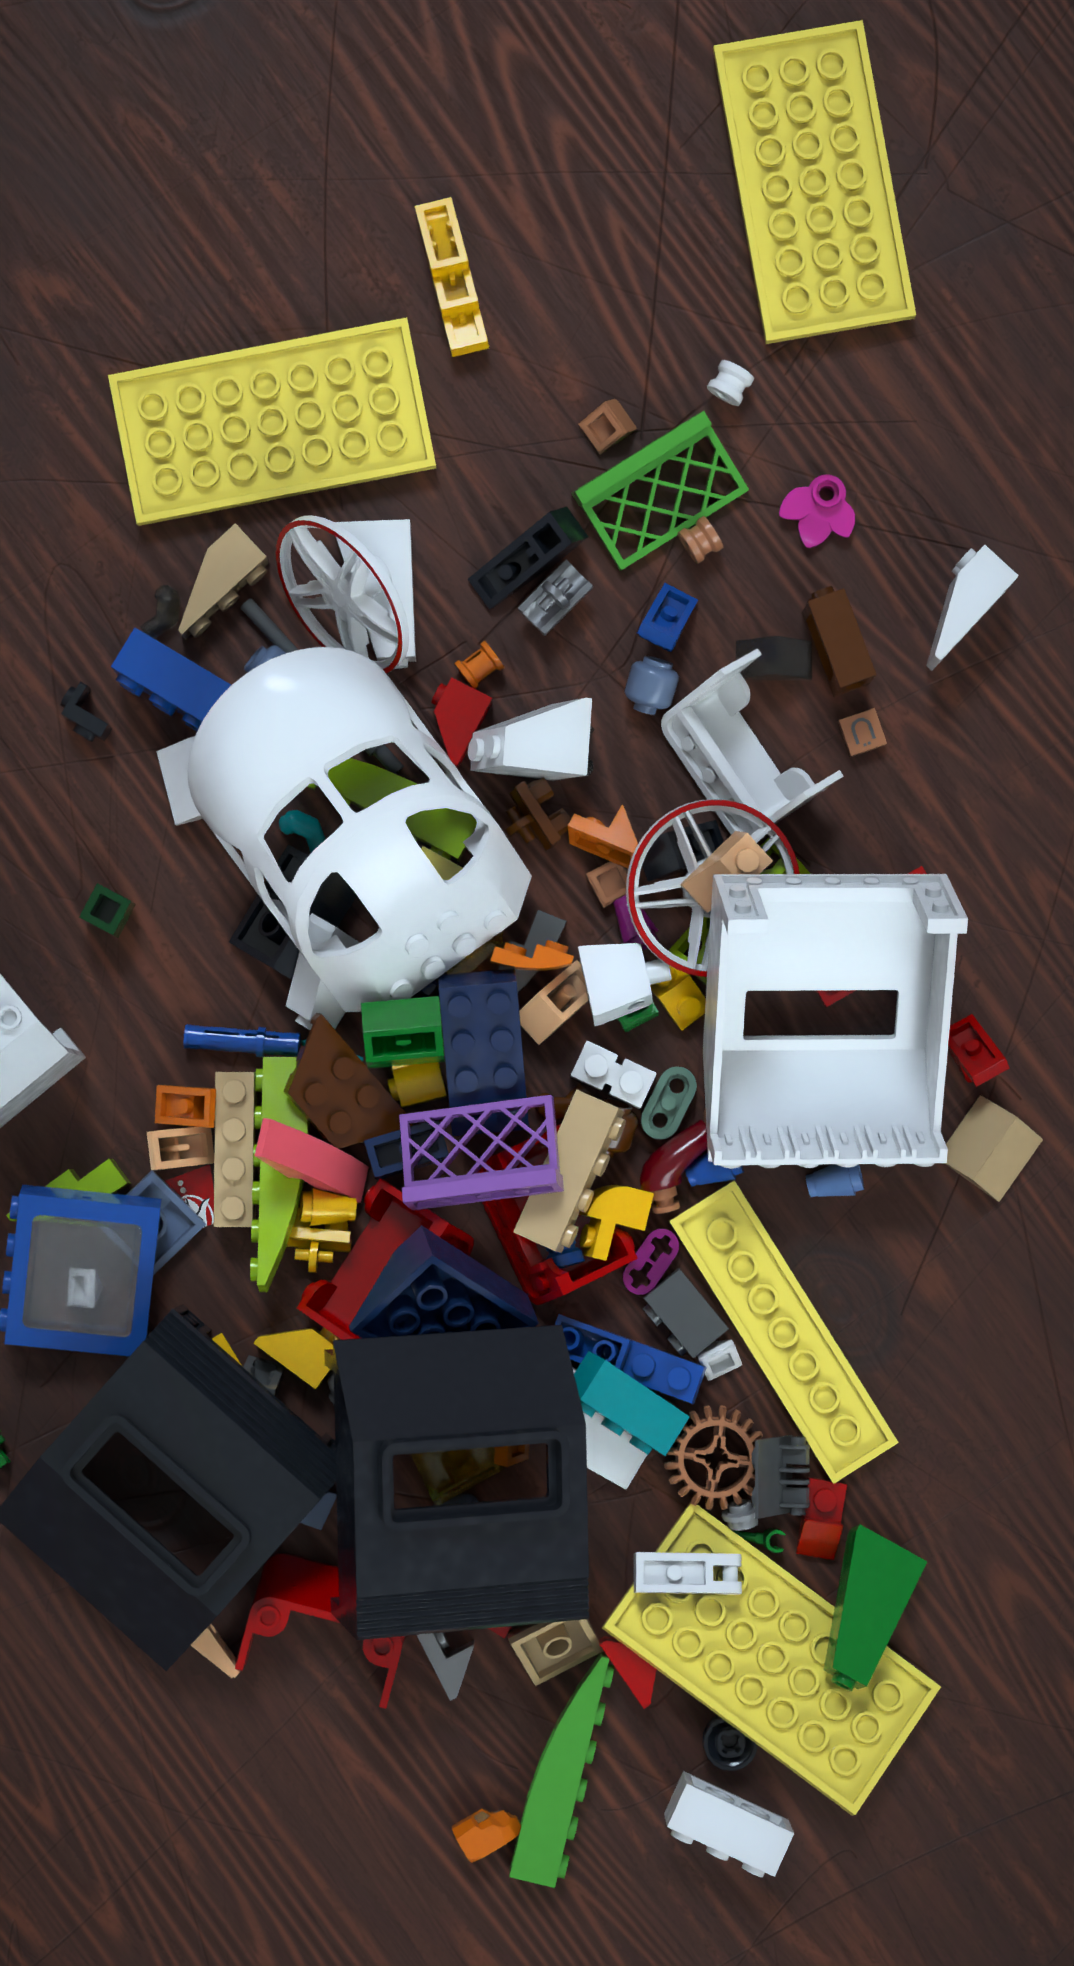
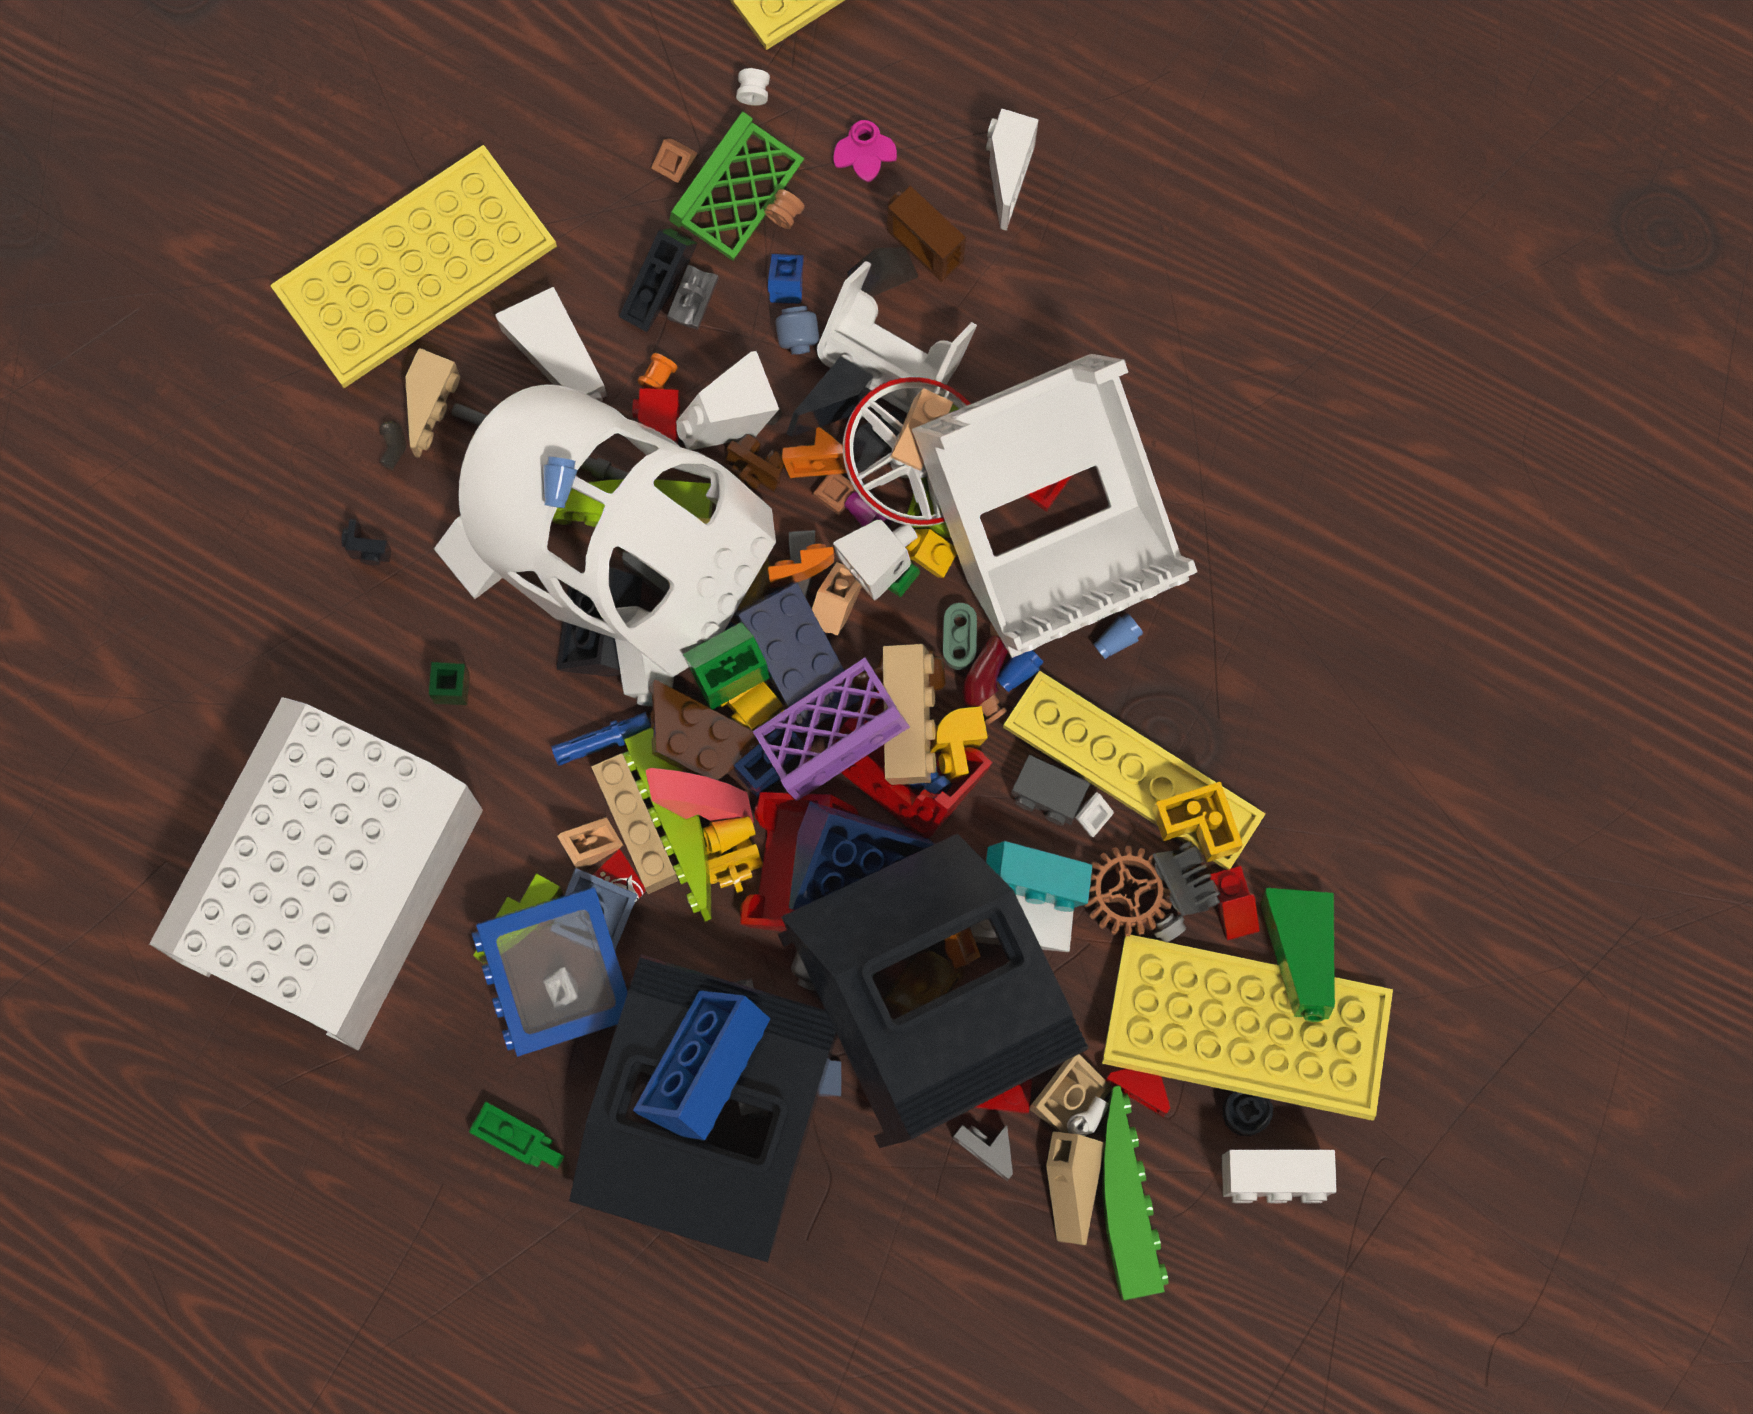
camera: 20 degrees left, 10 degrees down
(167, 678) = (416, 485): blue brick -> none
(181, 1460) = (702, 1064): none -> blue slope
(185, 1106) = (580, 806): orange slope -> none
(216, 1650) = (799, 1229): light nougat slope -> none
(300, 1351) = (760, 959): yellow slope -> none
(303, 825) = (572, 553): teal arm -> none
(304, 776) = (558, 481): none -> medium blue cone
(306, 1587) = (836, 1144): red windscreen -> none
(343, 589) = (527, 352): white wheel -> none
(451, 277) = (504, 103): yellow slope -> none
(485, 1832) = (1087, 1276): orange rock -> none
(514, 1733) = (1073, 1181): none -> tan slope
(559, 1676) = (1087, 1121): none -> white arm
(628, 1081) = (892, 628): white piece -> none
(640, 1361) = (1065, 840): blue slope -> none
(654, 783) = (831, 398): none -> black slope
(658, 1267) = (1011, 766): magenta beam -> none
(686, 1573) = (1148, 987): white plate -> none
(762, 1538) = (1197, 939): green hand -> none
(834, 1420) = (1204, 812): none -> yellow brick
(862, 732) = (975, 296): nougat tile -> none
(975, 1051) = (1180, 491): red slope -> none
(991, 1147) = (1225, 558): tan slope -> none

